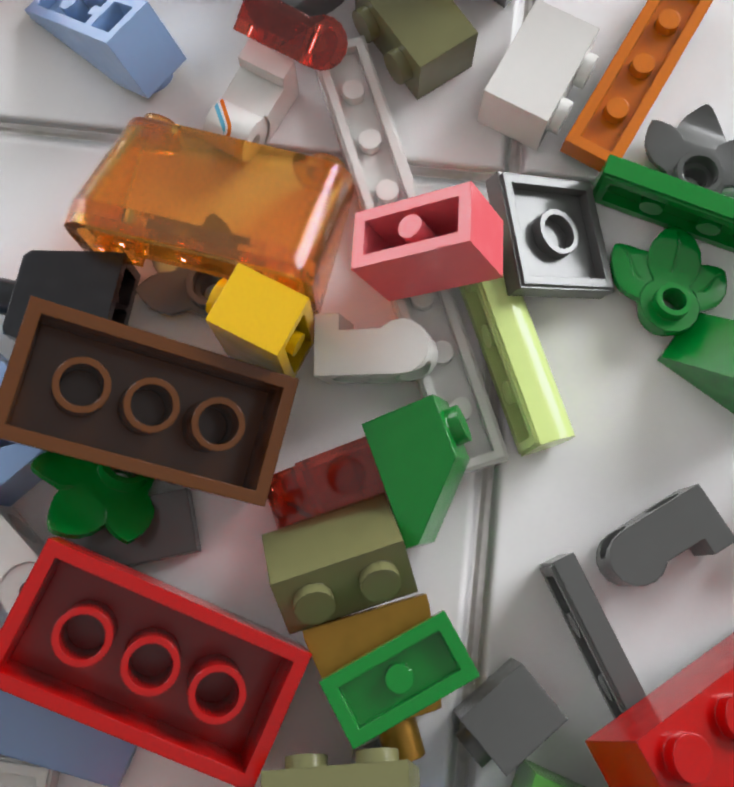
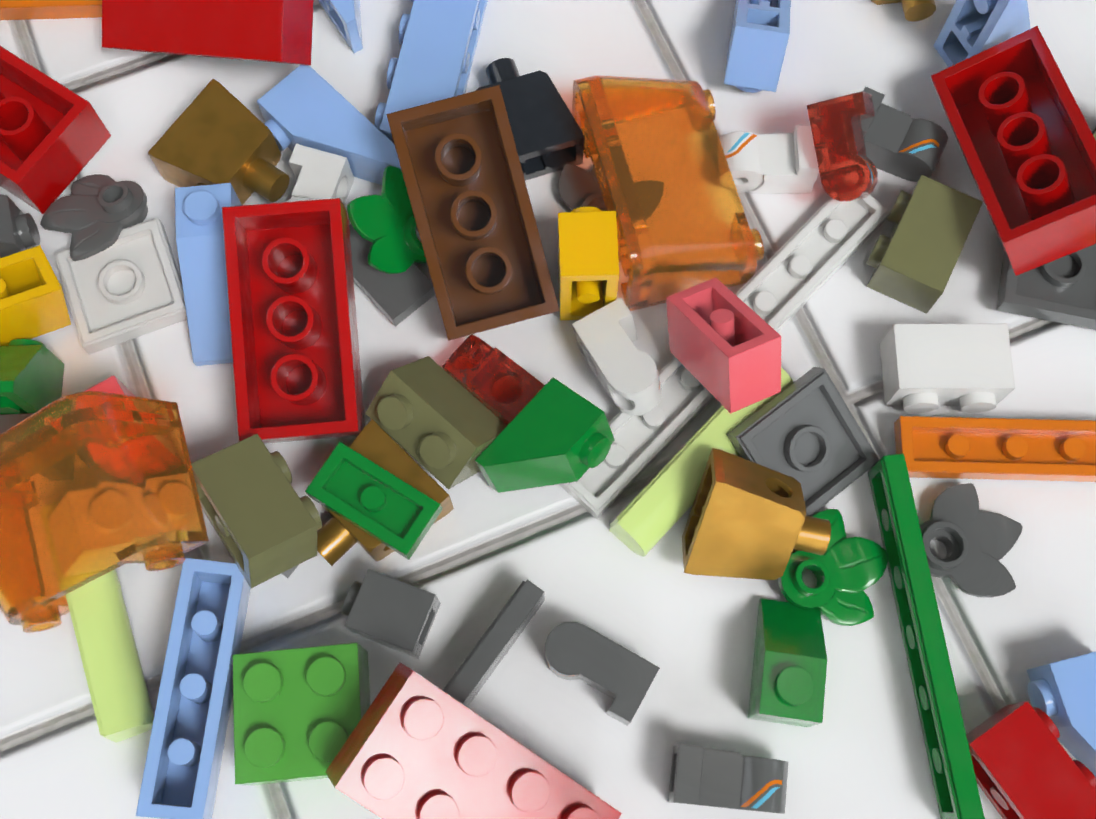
camera: 60 degrees right, 5 degrees down
(599, 326) = (748, 521): none -> pearl gold torso

